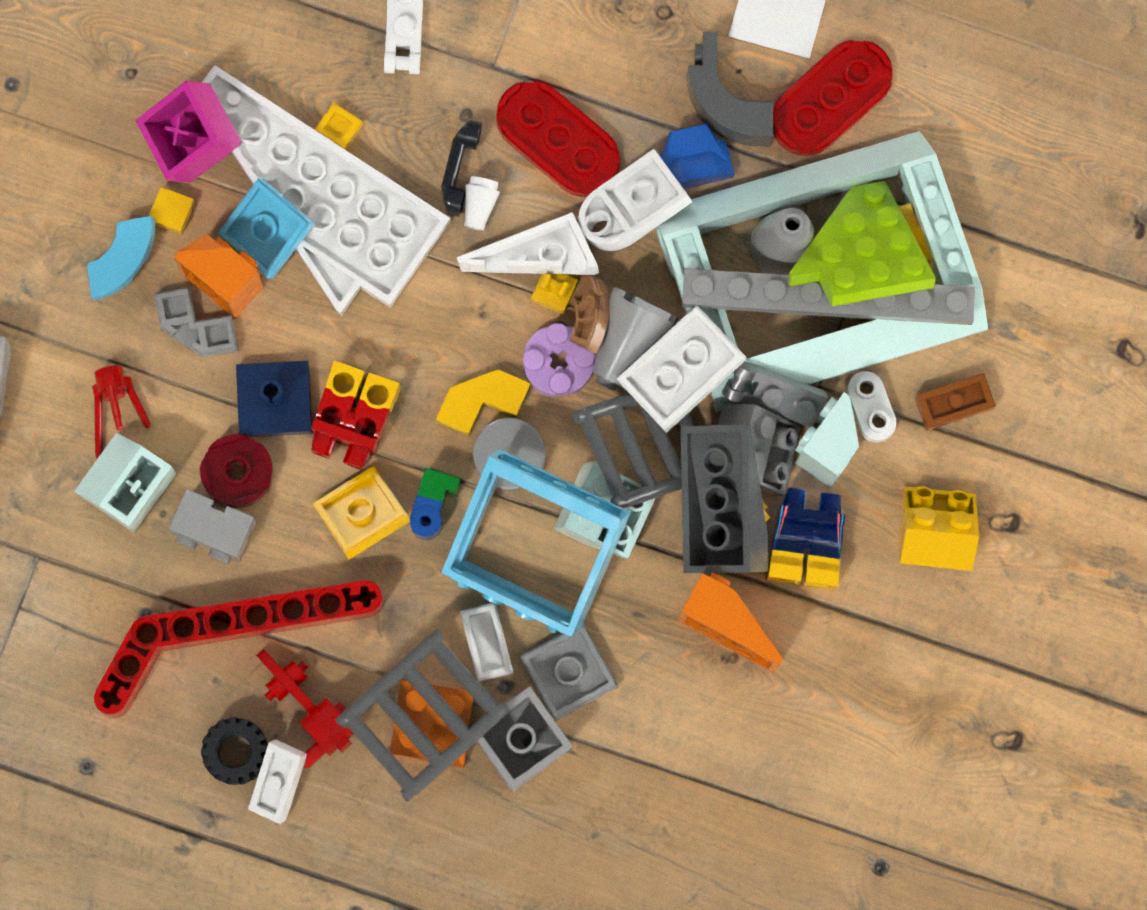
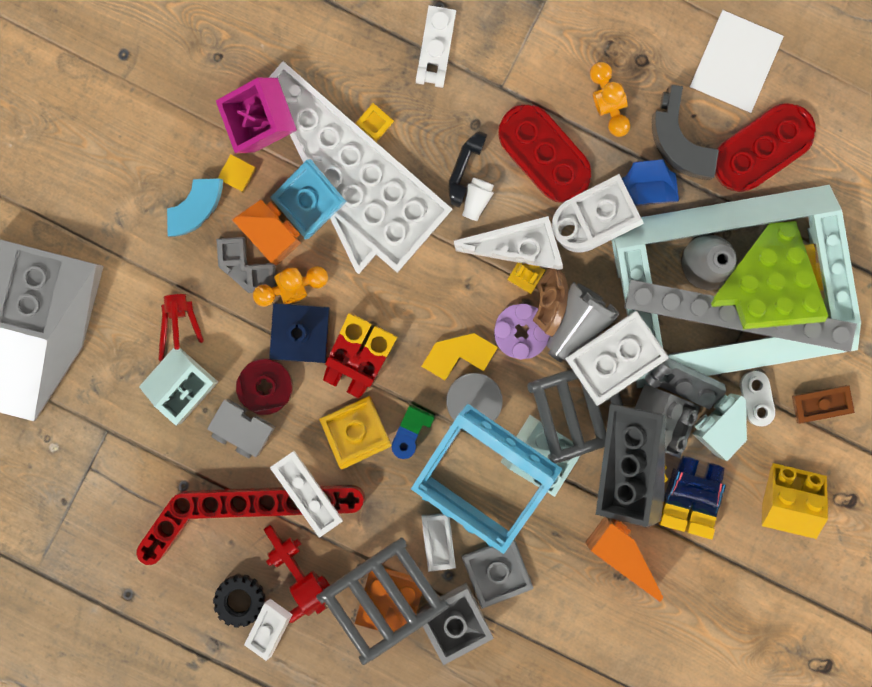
camera: 10 degrees right, 10 degrees up
(255, 337) = (290, 286): none -> light orange piece
(307, 591) = (306, 494): none -> white plate
(630, 61) = (610, 99): none -> light orange piece

